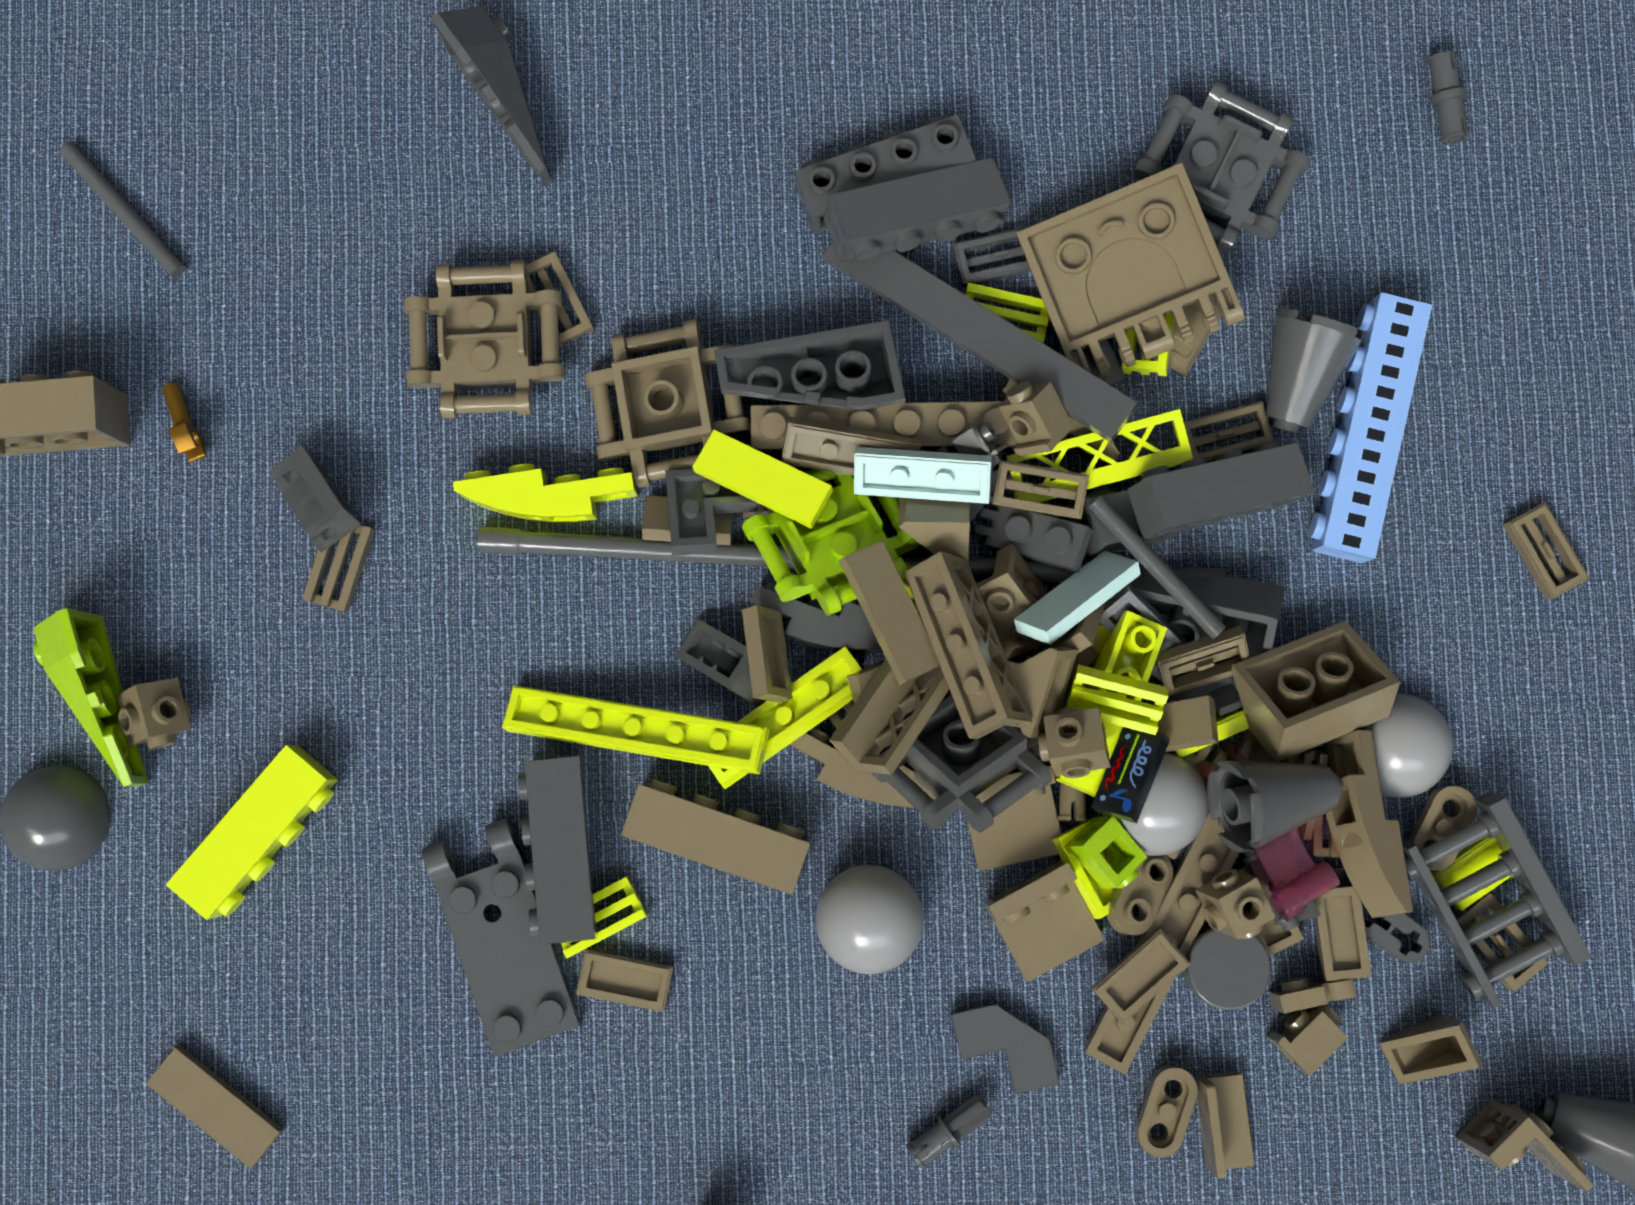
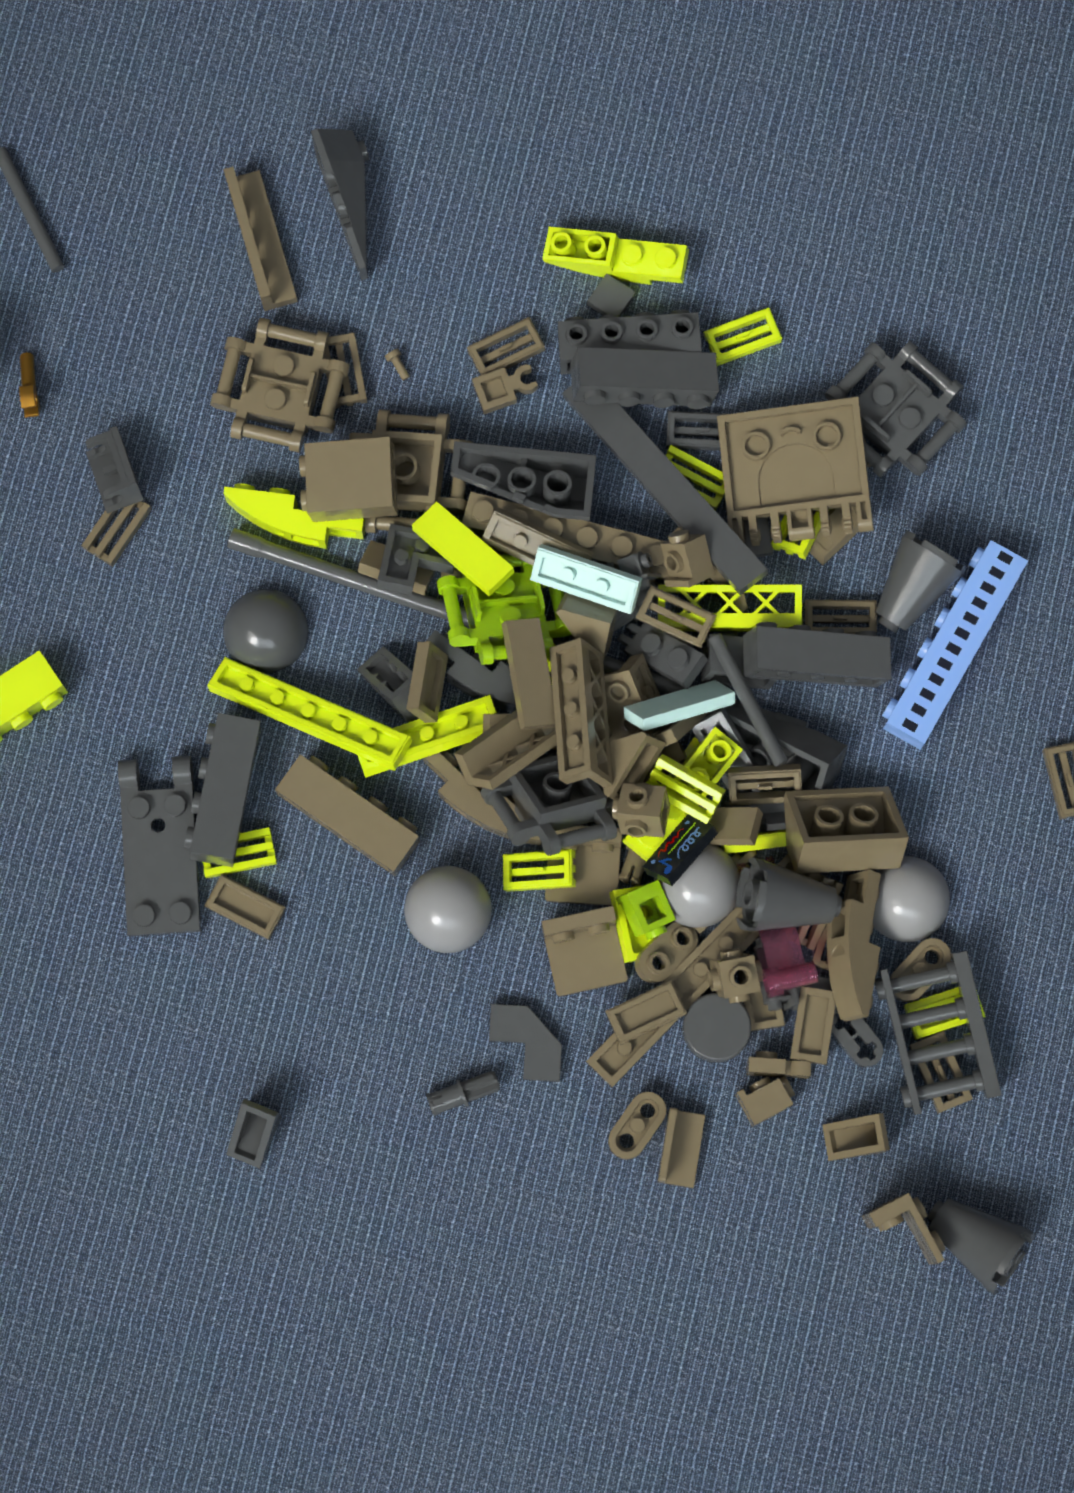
camera: 20 degrees right, 5 degrees down
(410, 169) = (261, 239): none -> dark tan fence
(553, 639) = (265, 630): none -> dark grey piece
(600, 432) = (349, 479): none -> dark tan brick
(610, 267) = (394, 357): none -> dark tan piece
(713, 245) = (500, 336): none -> dark tan tile
(746, 273) = (498, 389): none -> dark tan plate
(840, 77) = (622, 259): none -> neon yellow slope
(846, 125) = (611, 297): none -> dark grey tile
(998, 828) = (566, 869): none -> neon yellow tile
(1044, 108) = (746, 349): none -> neon yellow tile

